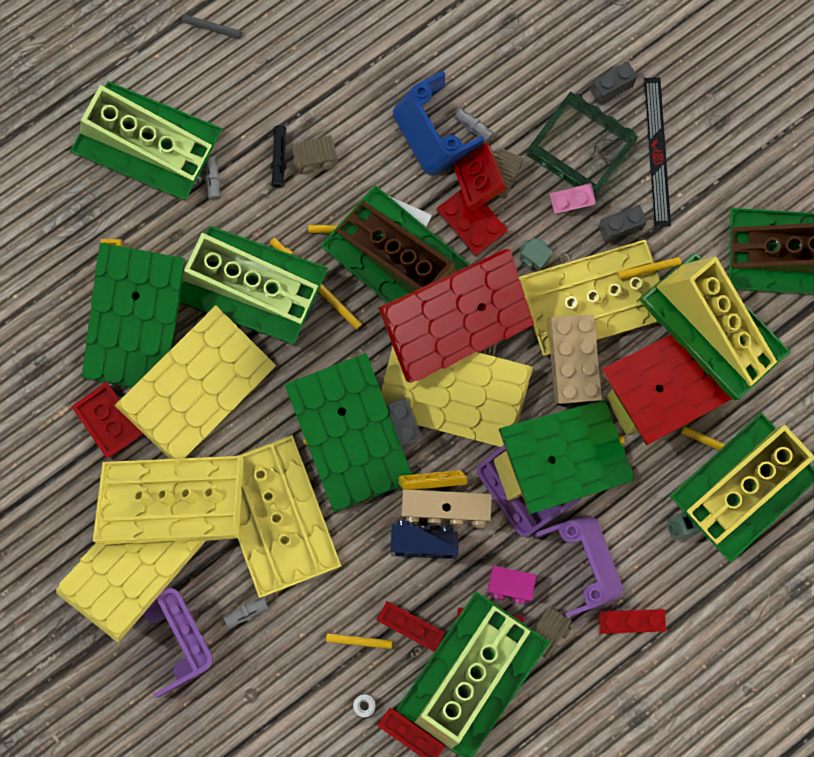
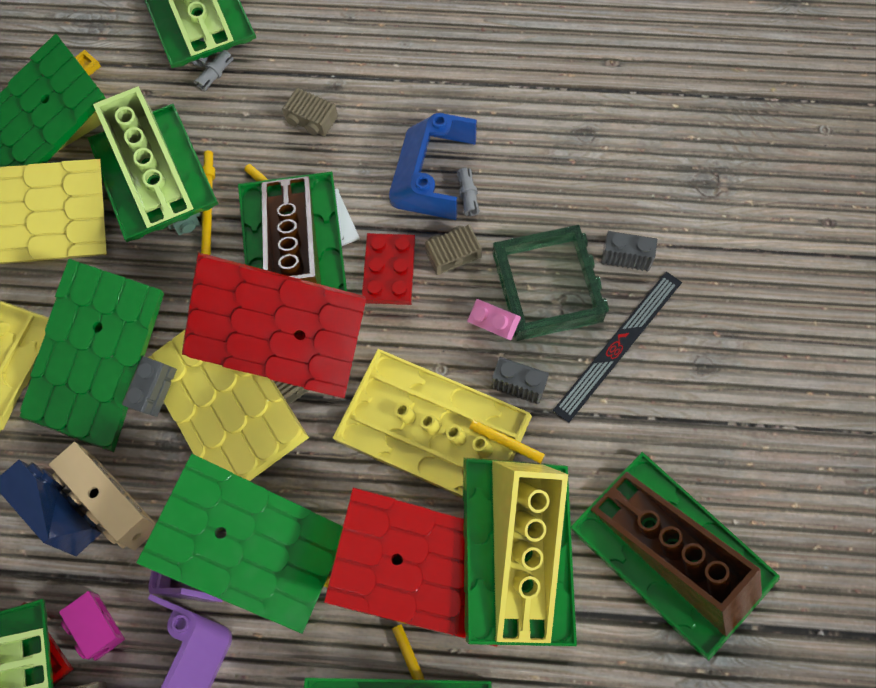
camera: 45 degrees right, 10 degrees down
(278, 163) = (262, 108): black pin -> none
(432, 480) = (121, 462): yellow tile -> none
(479, 176) = (423, 231): red plate -> none
(535, 254) = (413, 341): sand green brick -> none
(574, 359) = (351, 460): tan brick -> none

